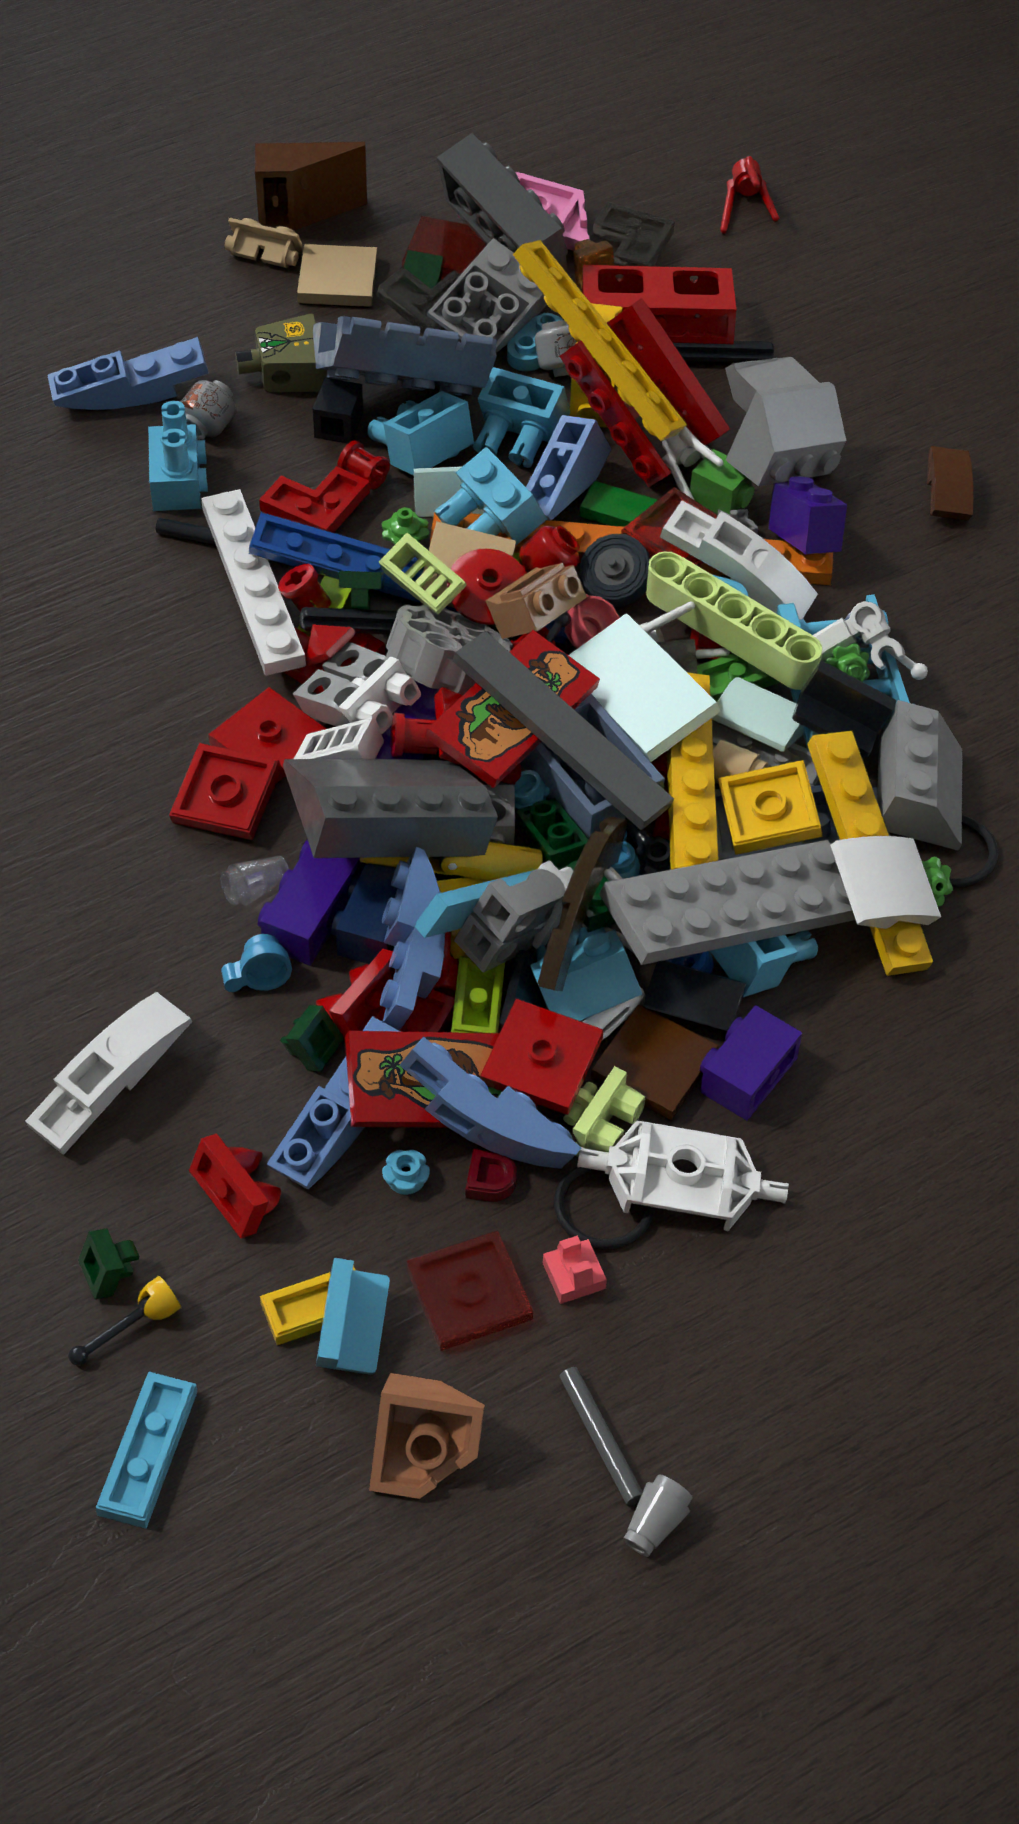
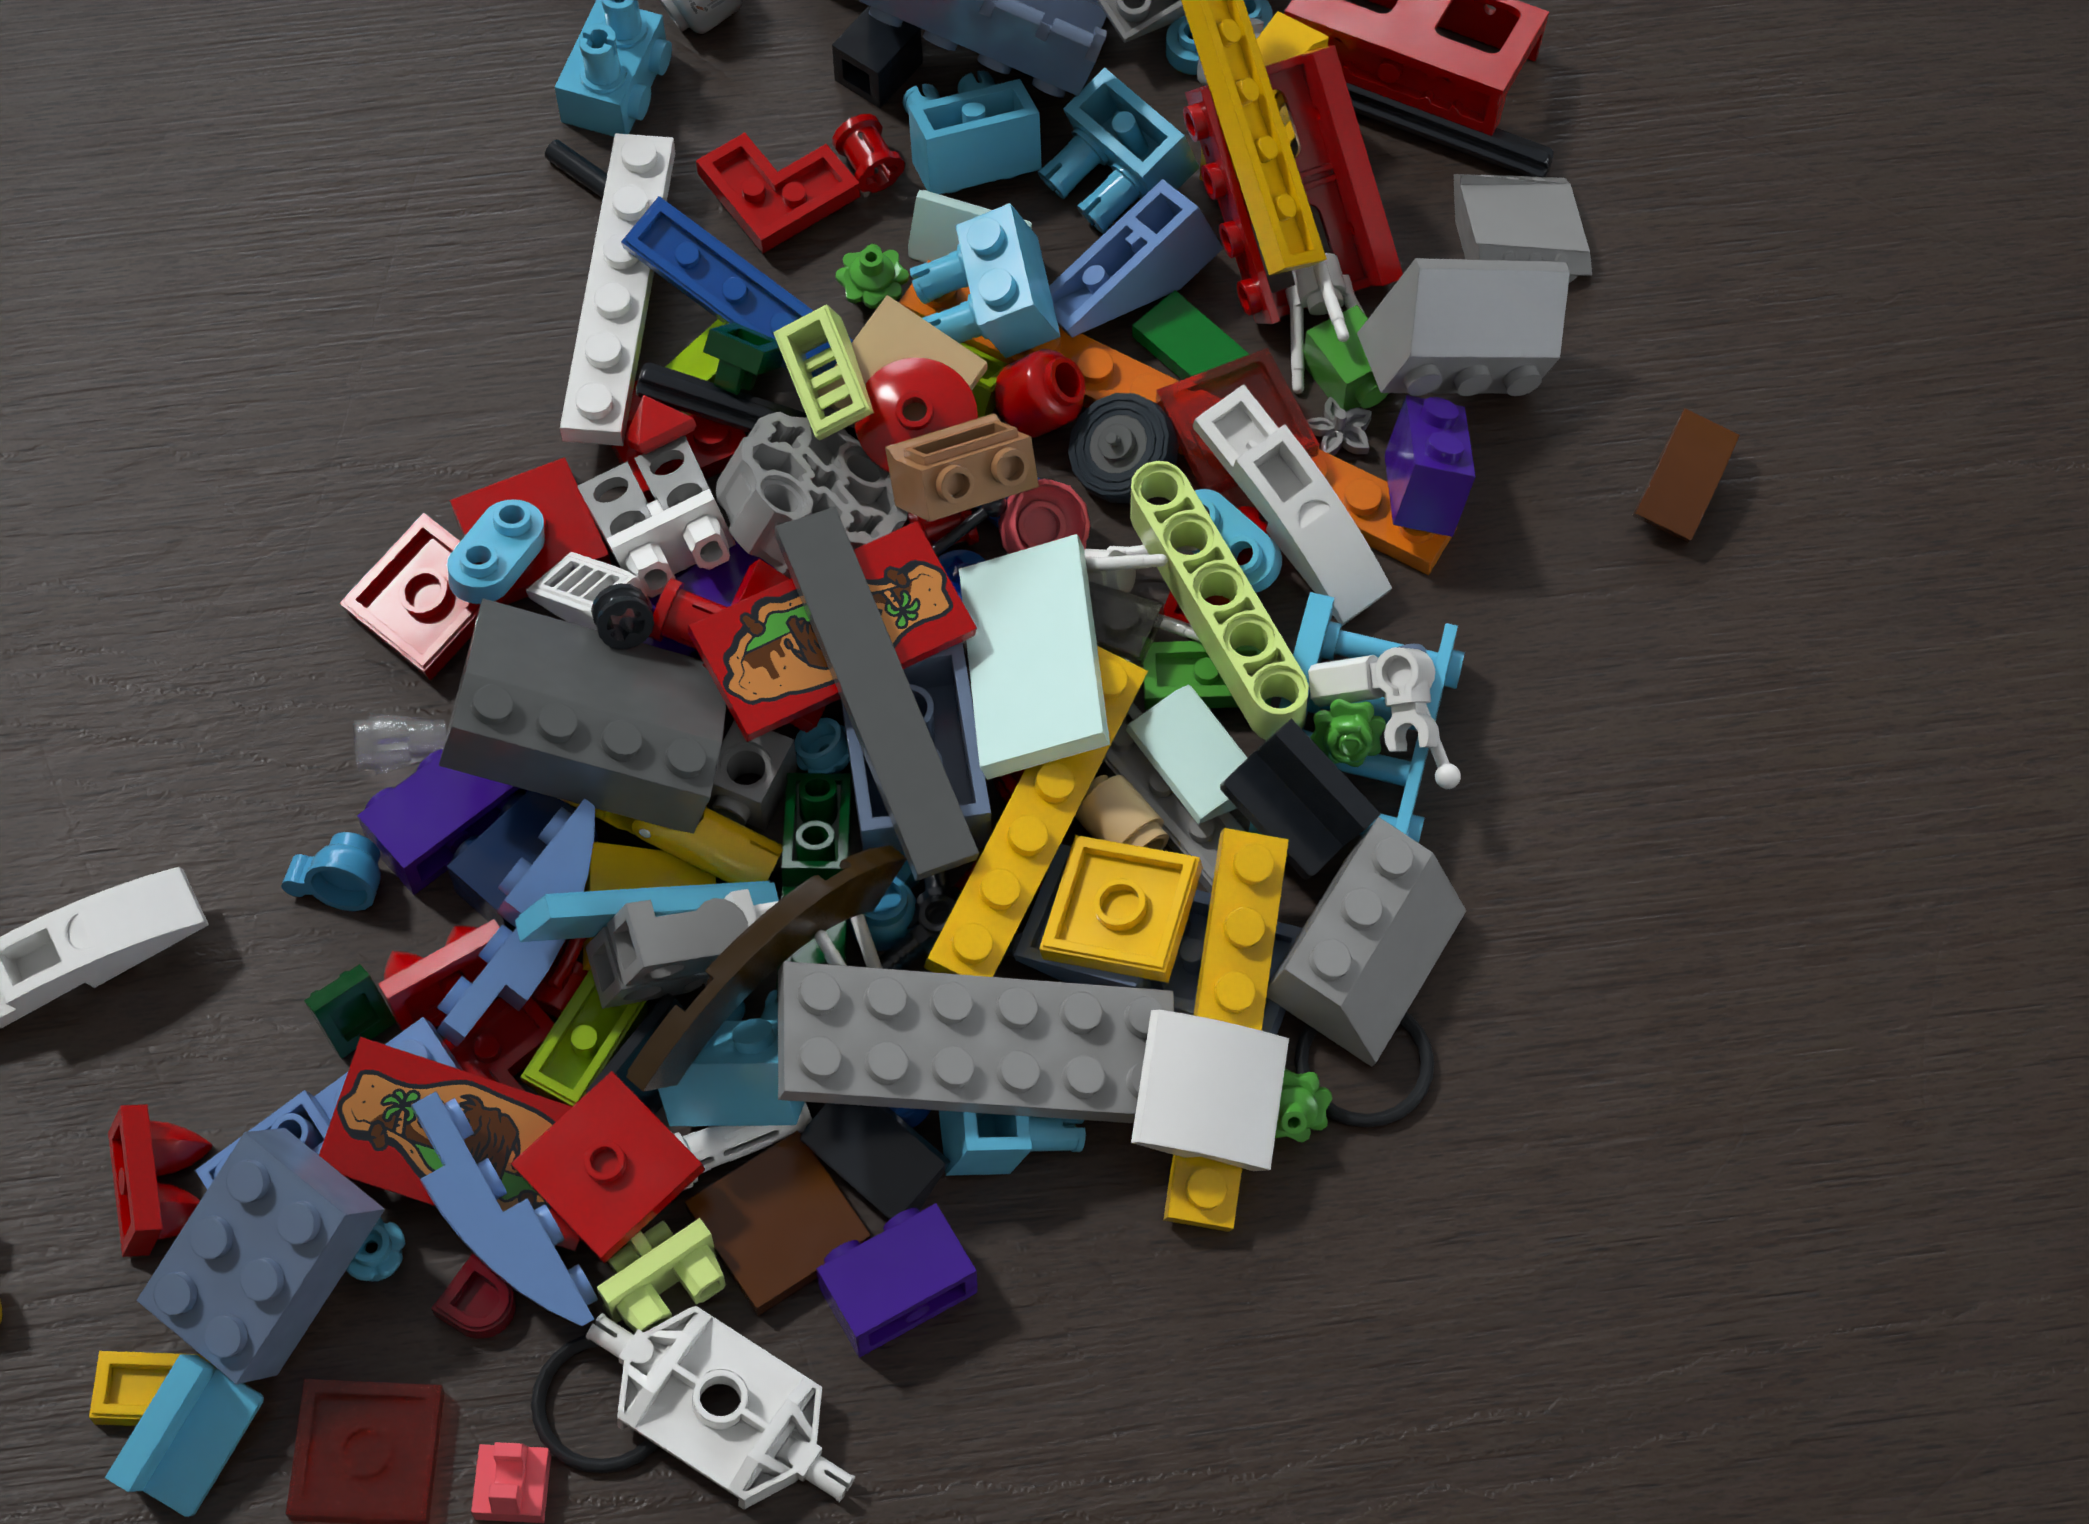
camera: 25 degrees right, 10 degrees up
(263, 744) = (502, 539): none -> medium azure plate
(302, 586) = (675, 330): red bush -> none
(348, 1186) = (260, 1255): none -> sand blue brick
(375, 730) = (615, 601): none -> black bush

